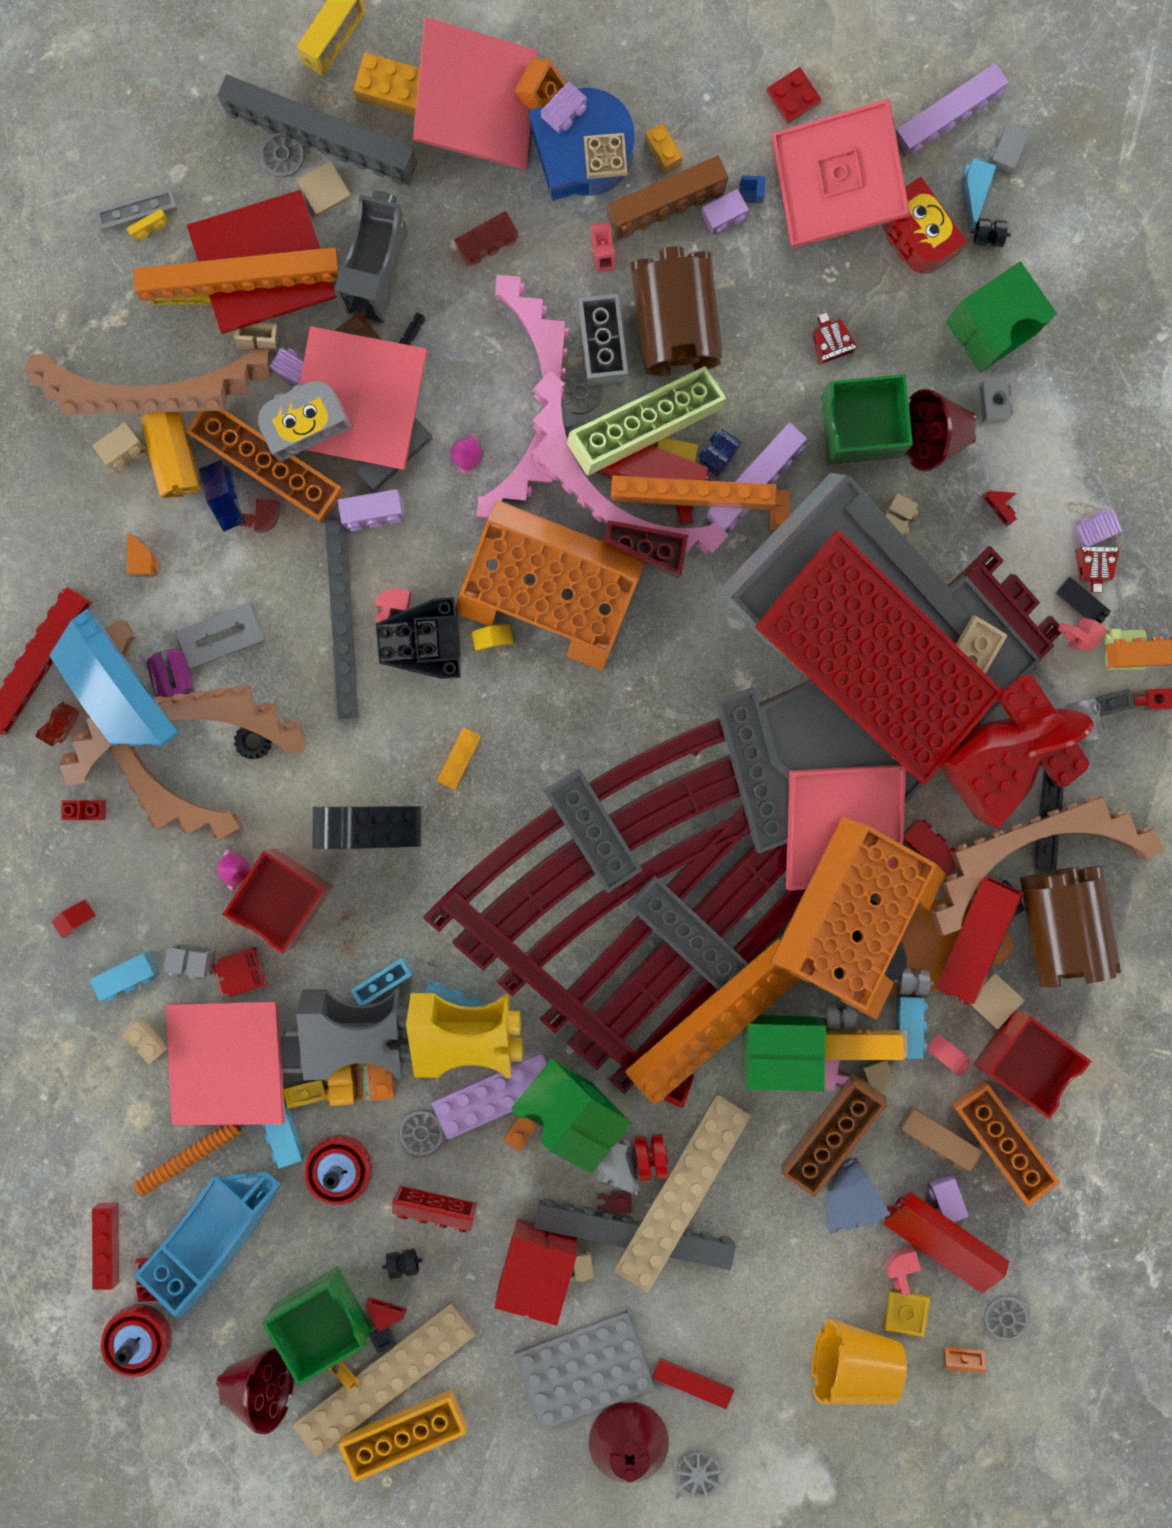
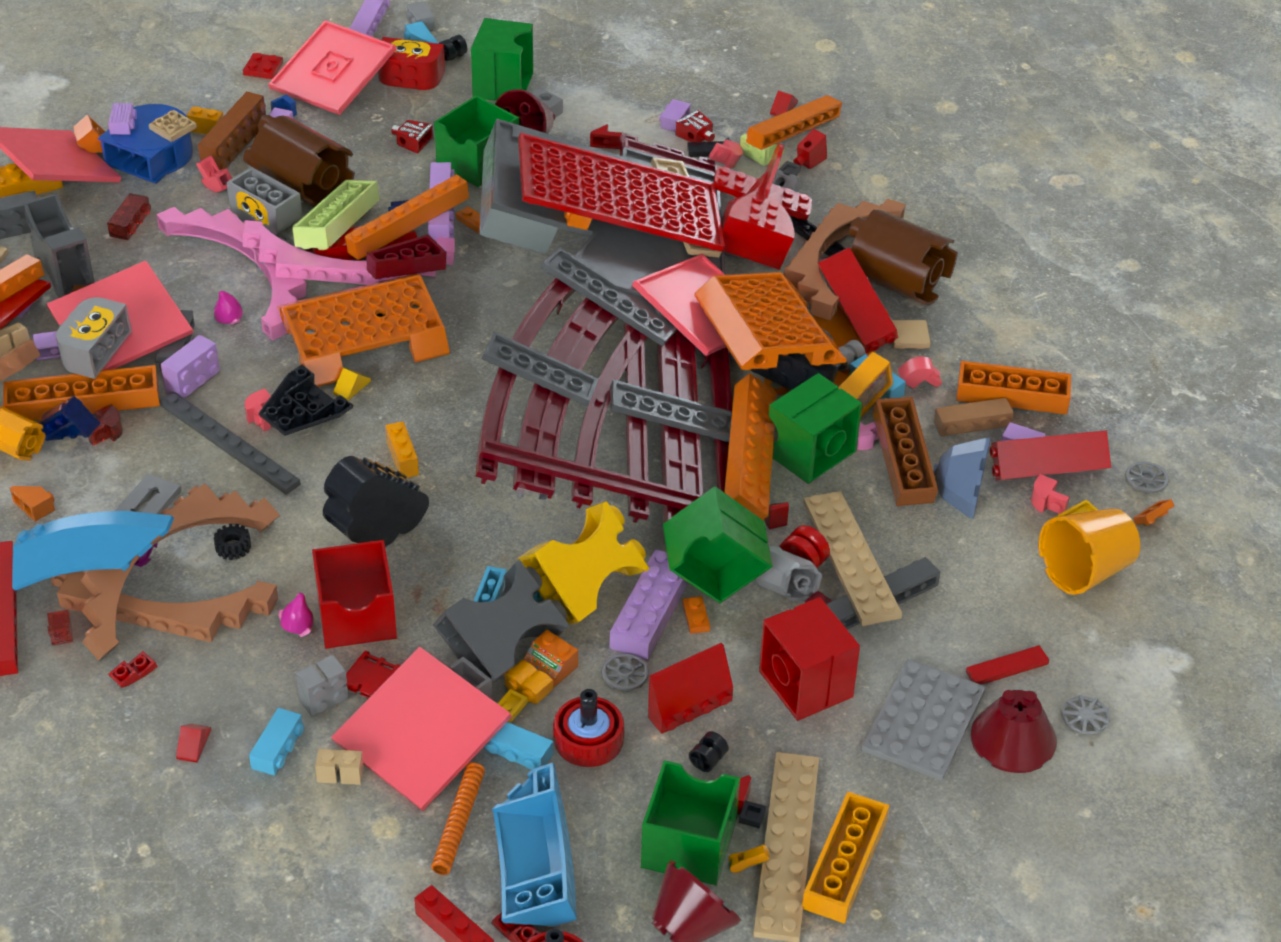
camera: 45 degrees left, 45 degrees down
(1031, 1062) = (969, 328): red piece -> none

